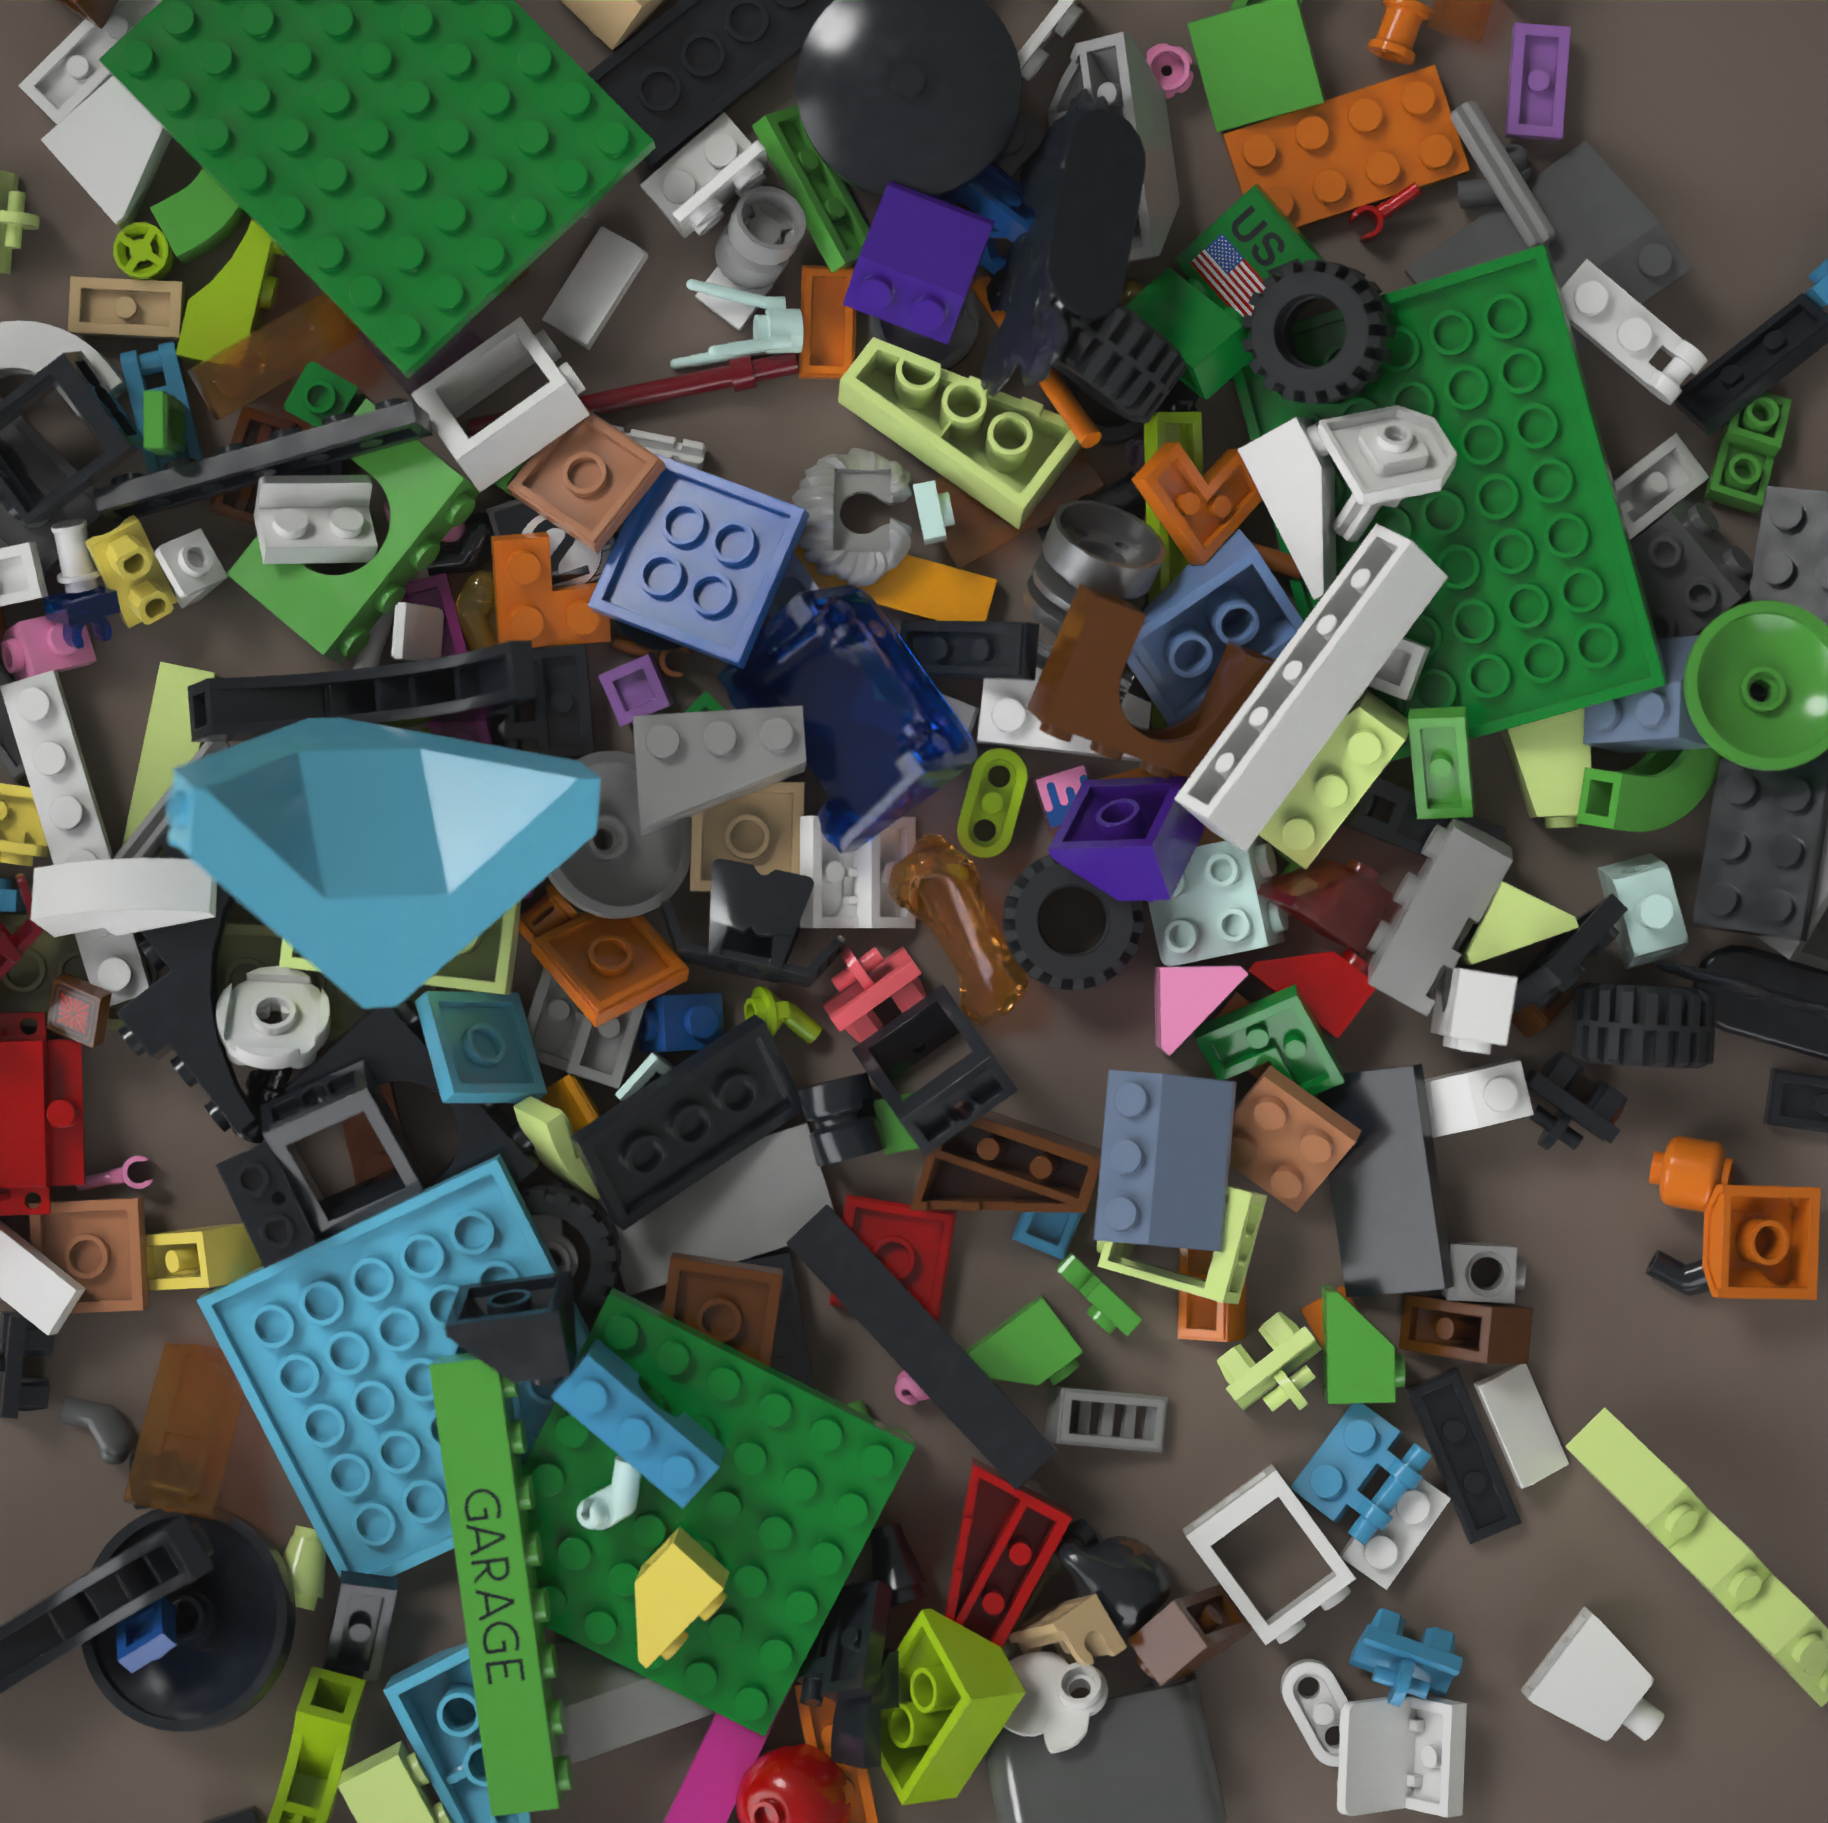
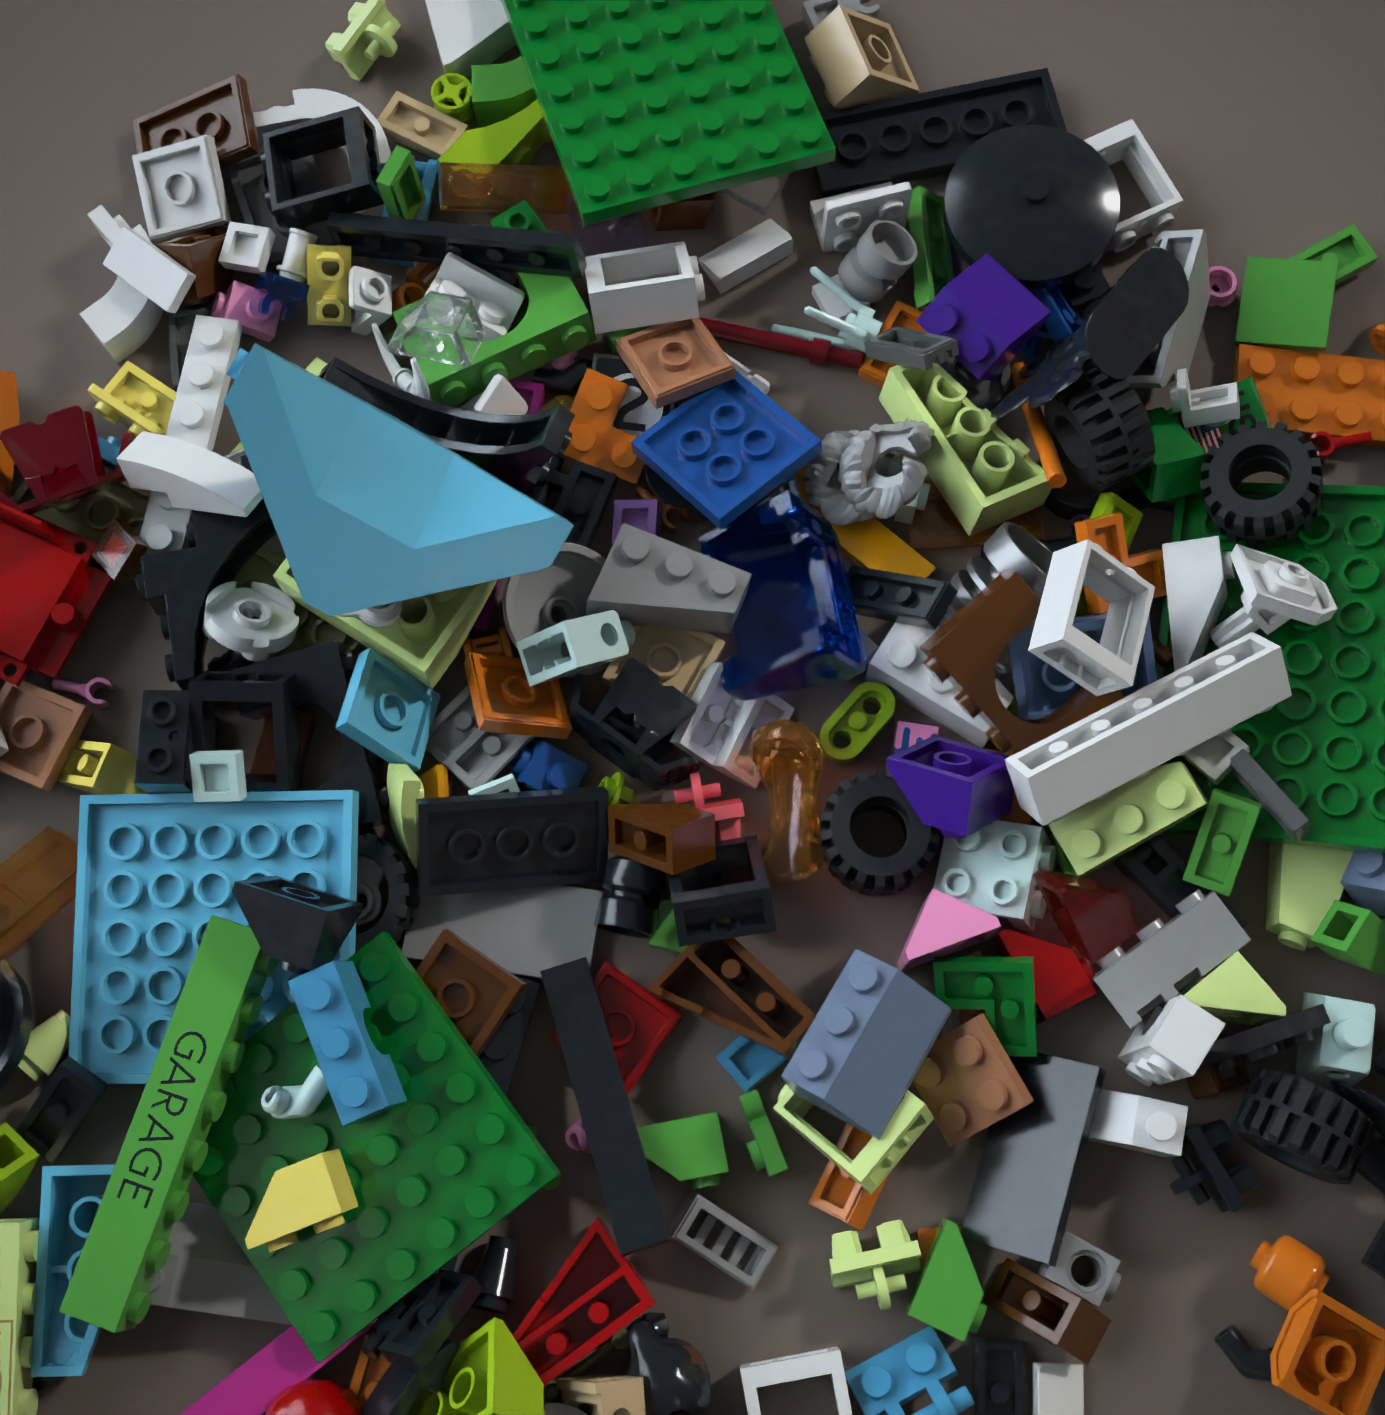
camera: 25 degrees right, 15 degrees down
(231, 539) = (406, 295): none -> orange hinge
(276, 641) = (403, 378): none -> white piece
(303, 586) = (439, 330): none -> clear slope
(345, 1214) = (218, 776): none -> light aqua plate
(665, 869) = (590, 641): none -> light aqua torso
(847, 1042) = (663, 835): none -> reddish brown slope
(848, 350) = (911, 348): none -> dark grey tile
(858, 507) = (860, 461): none -> light grey piece
(1215, 247) = (1204, 406): none -> white bracket
(1238, 596) = (1092, 665): none -> white window
(1469, 694) = (1269, 794): none -> dark grey tile

